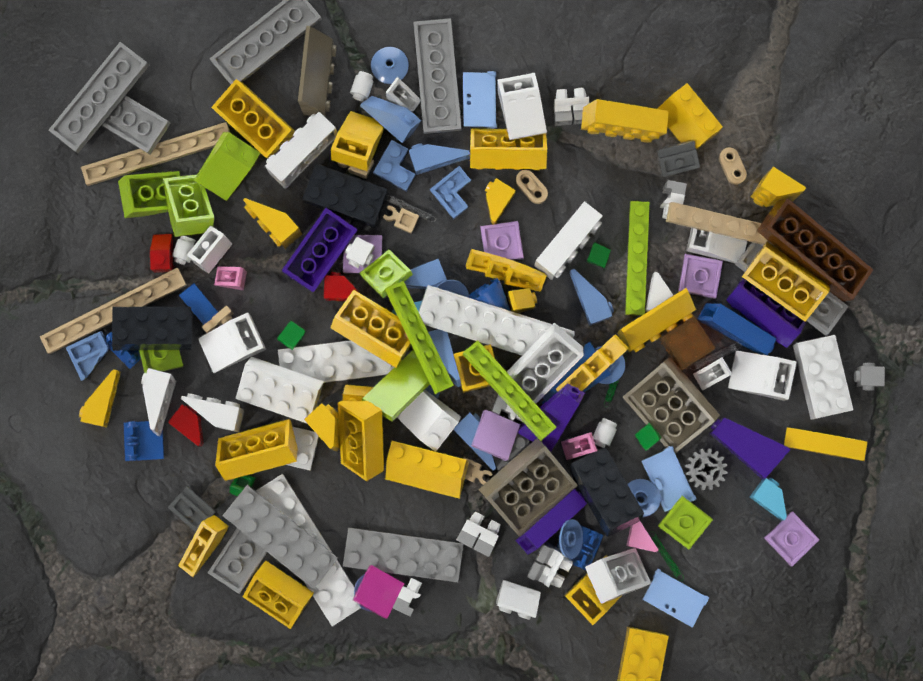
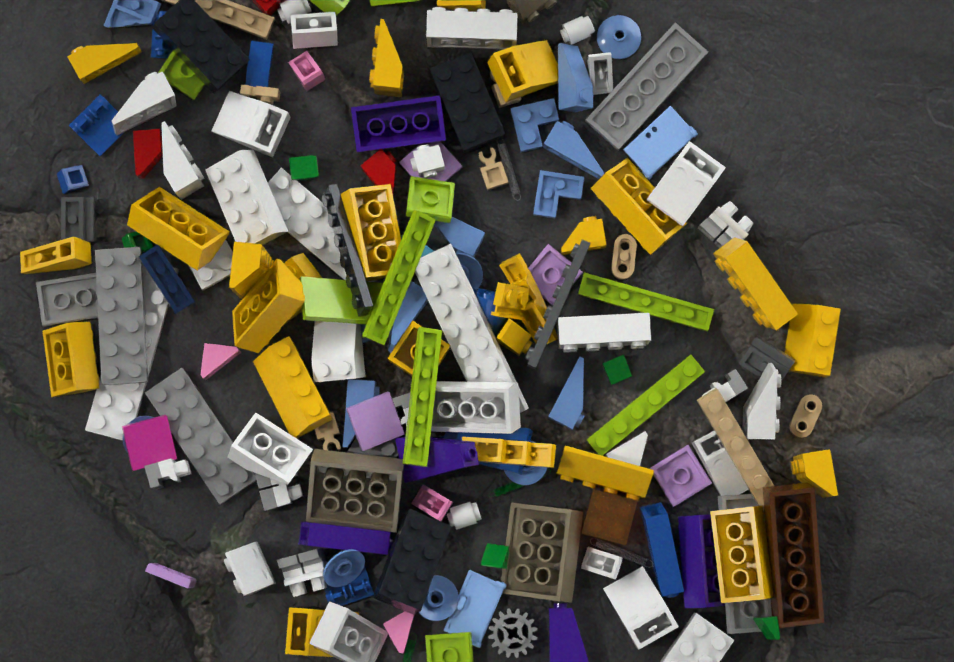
camera: 50 degrees right, 0 degrees up
(162, 489) = (72, 179): none -> blue slope
(283, 486) = (166, 279): none -> dark blue plate
(362, 500) = (216, 357): none -> bright pink slope
(371, 354) = (348, 253): none -> black plate
(454, 519) = (268, 450): none -> white slope
(476, 653) = (171, 575): none -> lavender tile
(497, 280) = (510, 300): none -> yellow plate
(529, 261) = (552, 313): none -> dark grey plate
(572, 199) = (646, 302): none -> lime plate
(704, 185) = (761, 406): none -> white slope
(845, 306) = (769, 626): none -> green slope

